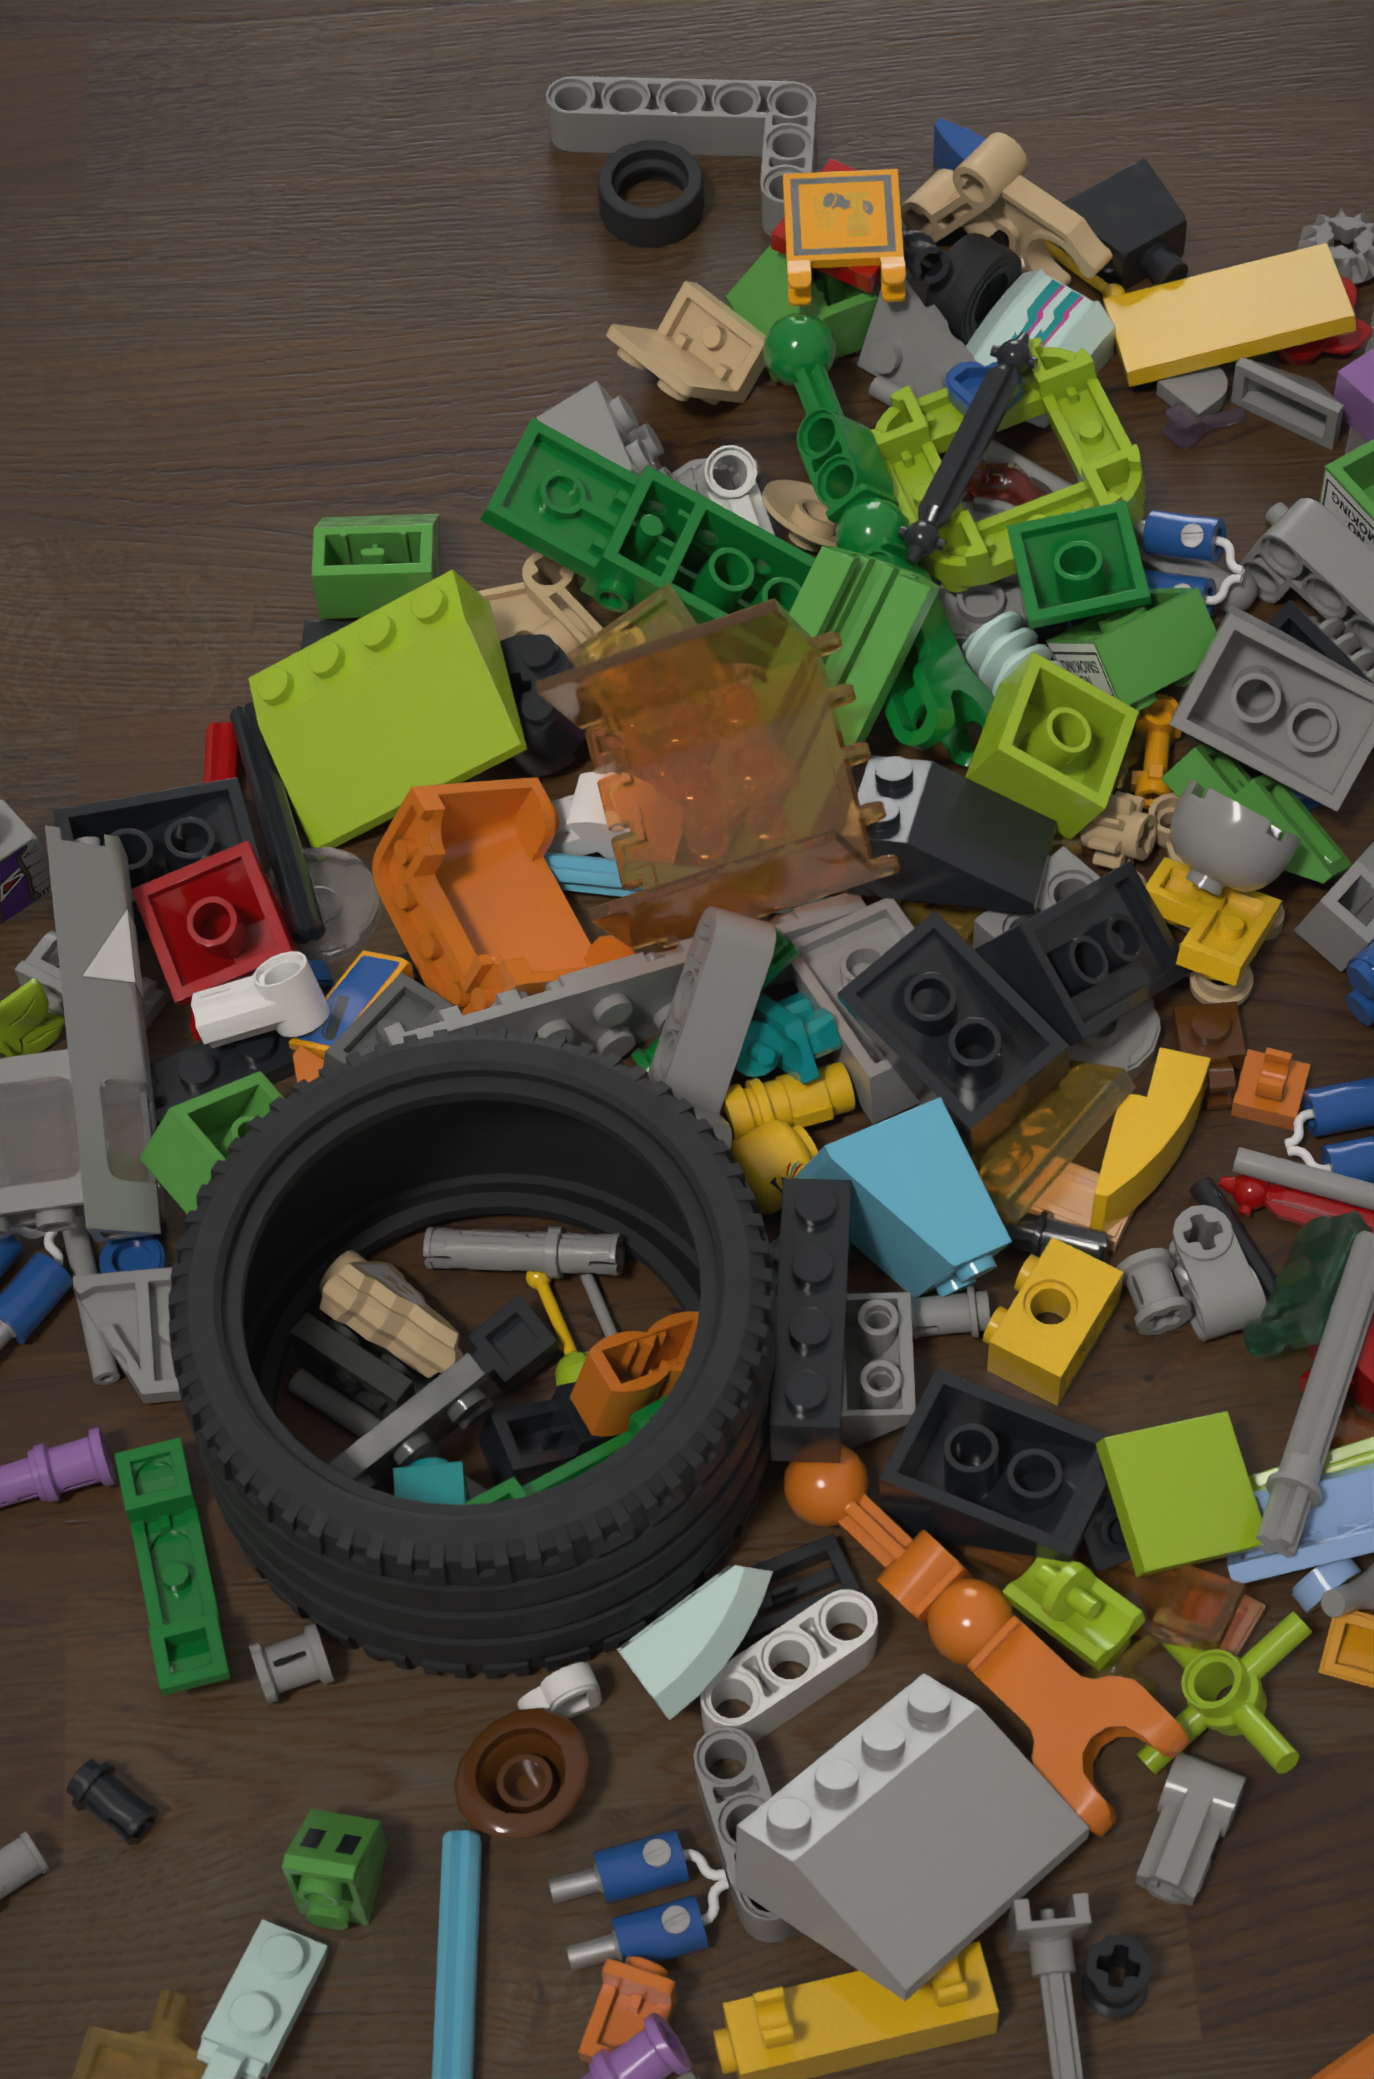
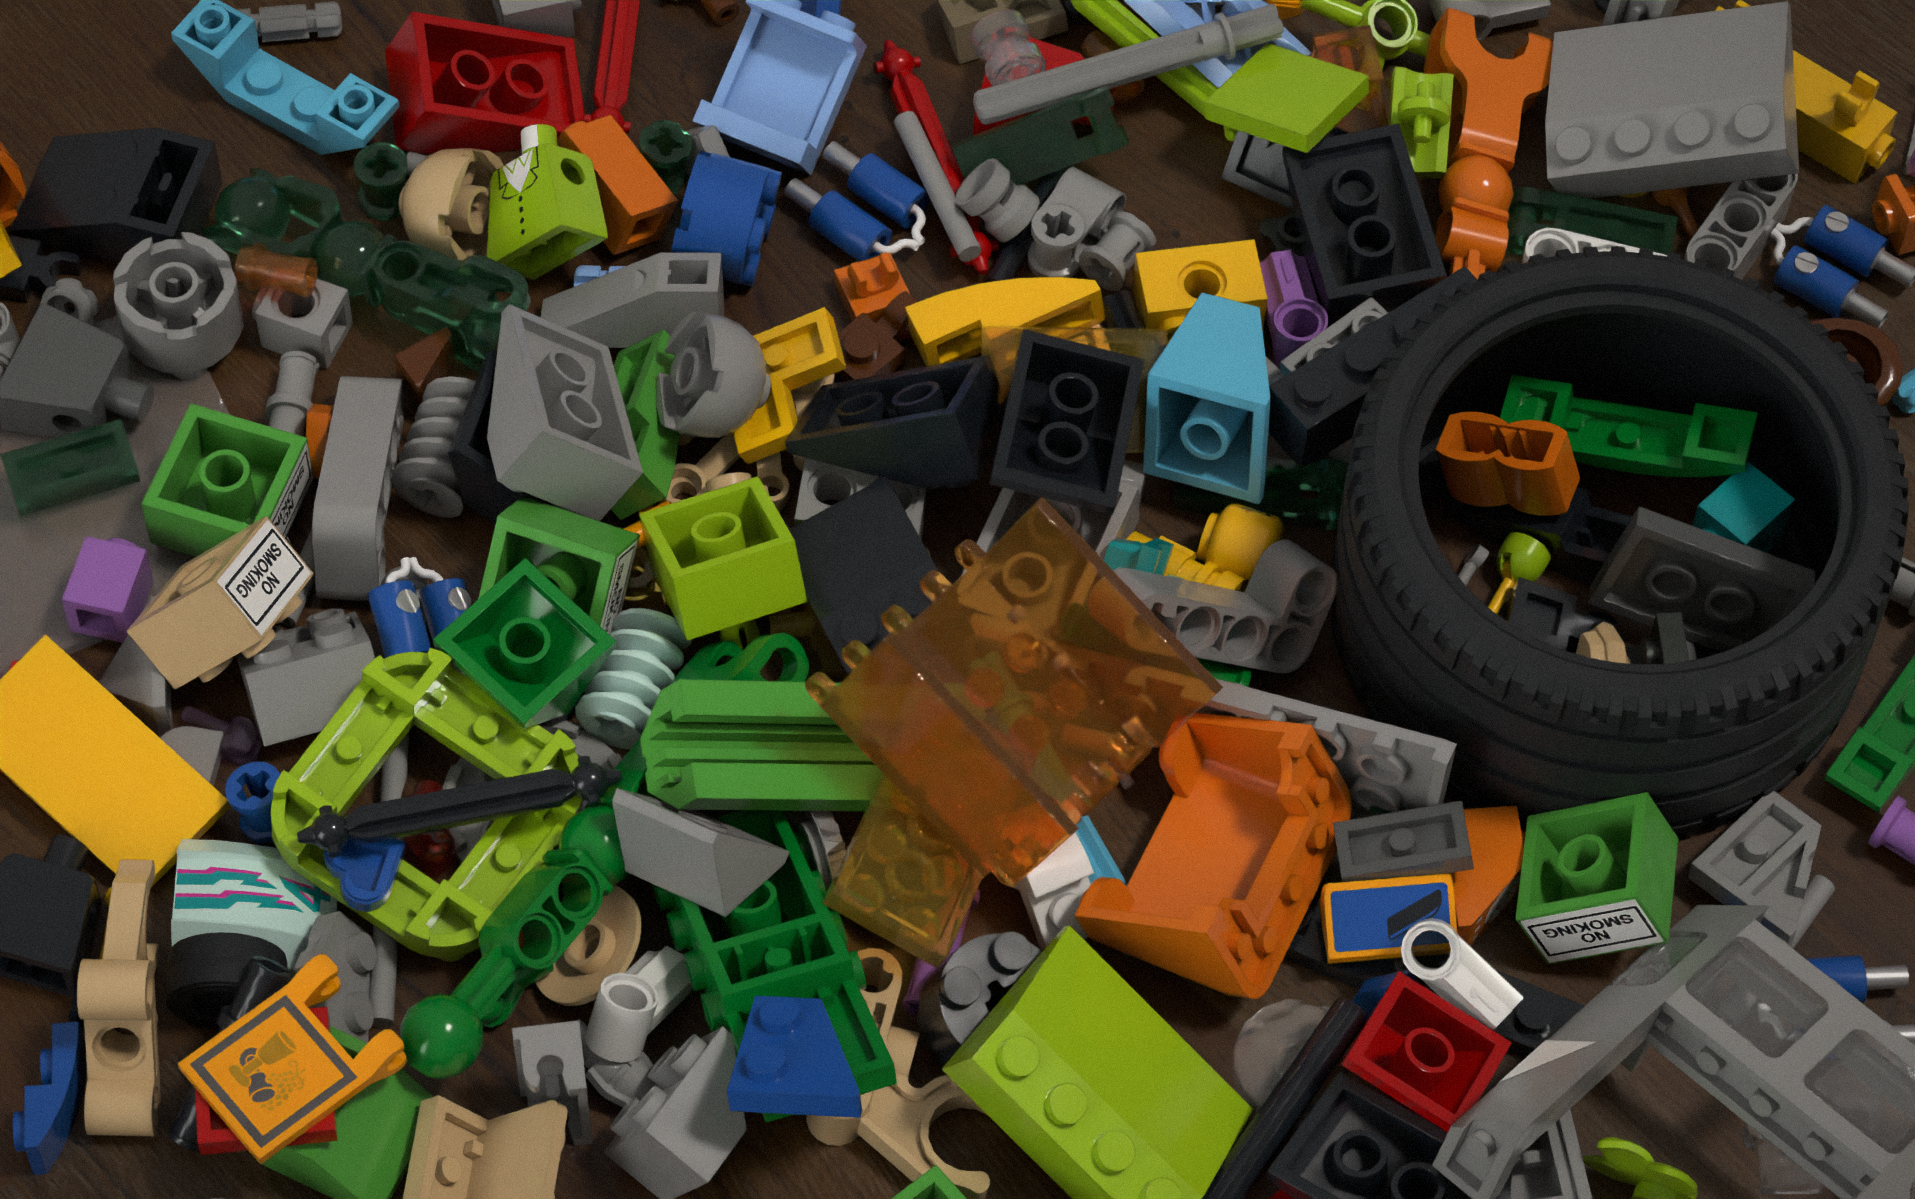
camera: 135 degrees left, 0 degrees up
(547, 452) = (792, 1062): none -> blue wing
(714, 410) = (553, 1069): none -> light grey hinge
(782, 536) = (692, 852): none -> light grey slope
(849, 1700) = (1587, 217): none -> clear green plate
(972, 1364) = (1292, 303): none -> medium lavender piece
(1121, 383) = (256, 810): none -> blue bush
(1207, 468) = (305, 674): none -> light grey slope
(1272, 1210) = (997, 200): none -> light grey wheel
(1285, 420) = (222, 604): none -> tan brick

